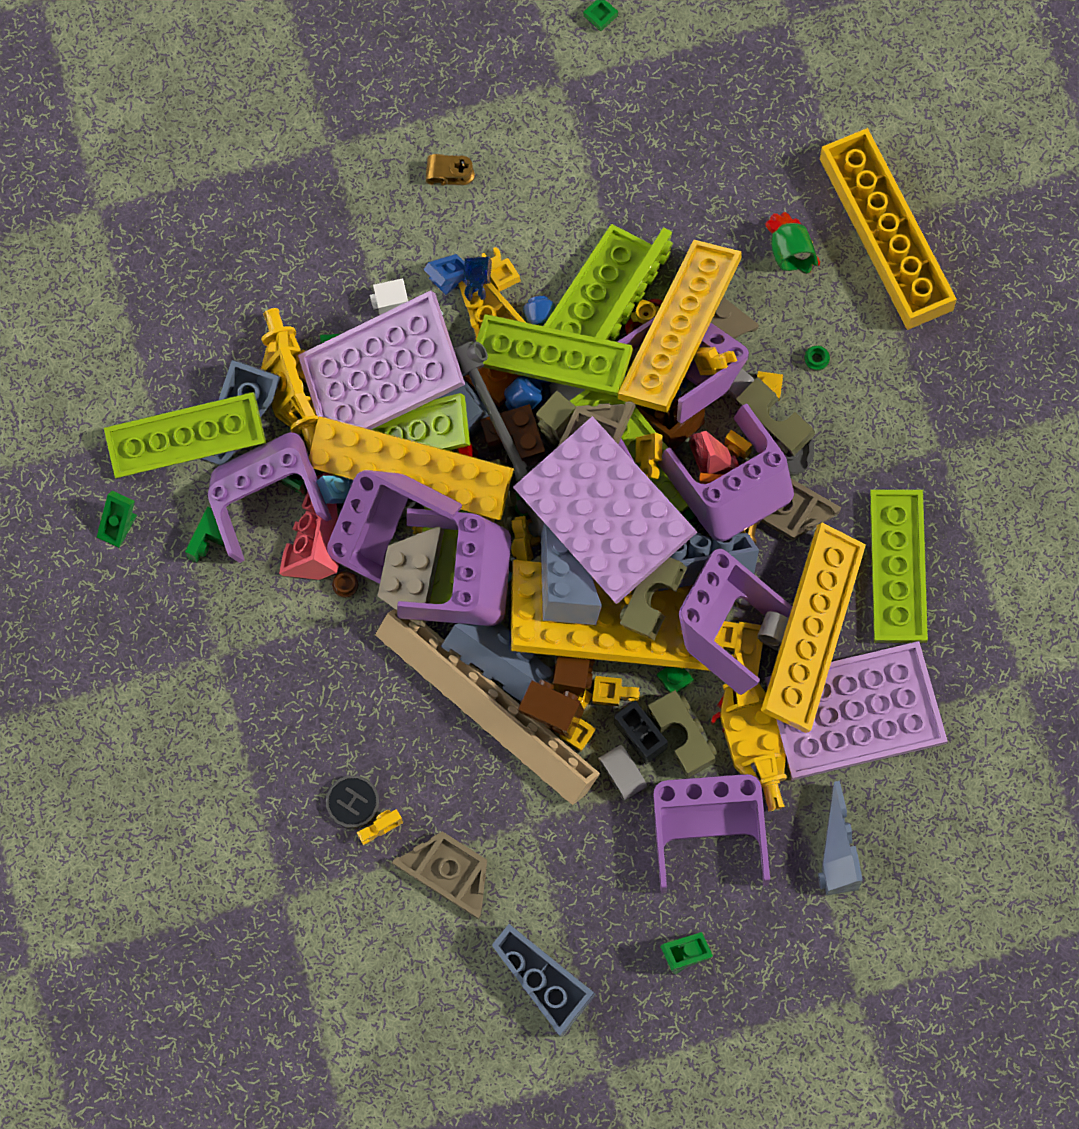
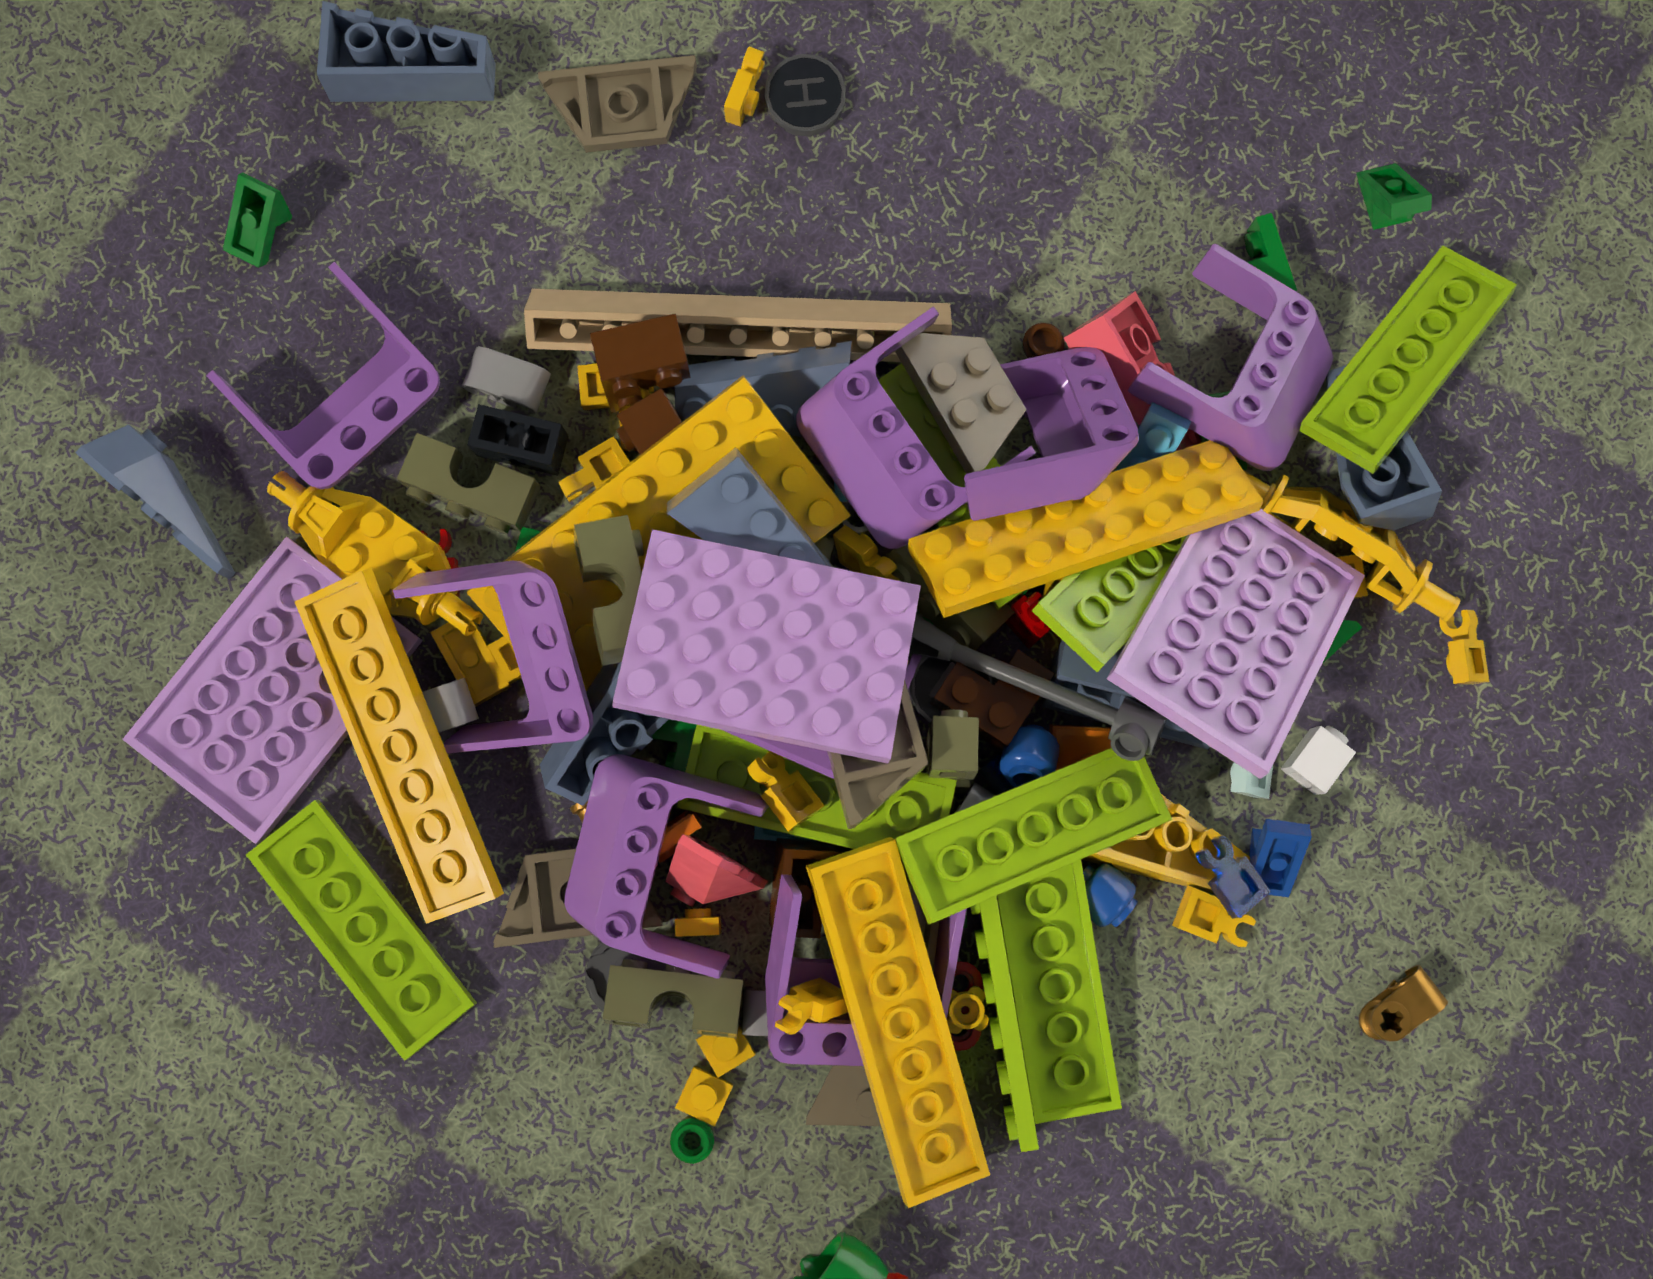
camera: 135 degrees right, 10 degrees up
(281, 289) = (1466, 654): none -> yellow plate
(796, 372) = (704, 1096): none -> yellow plate

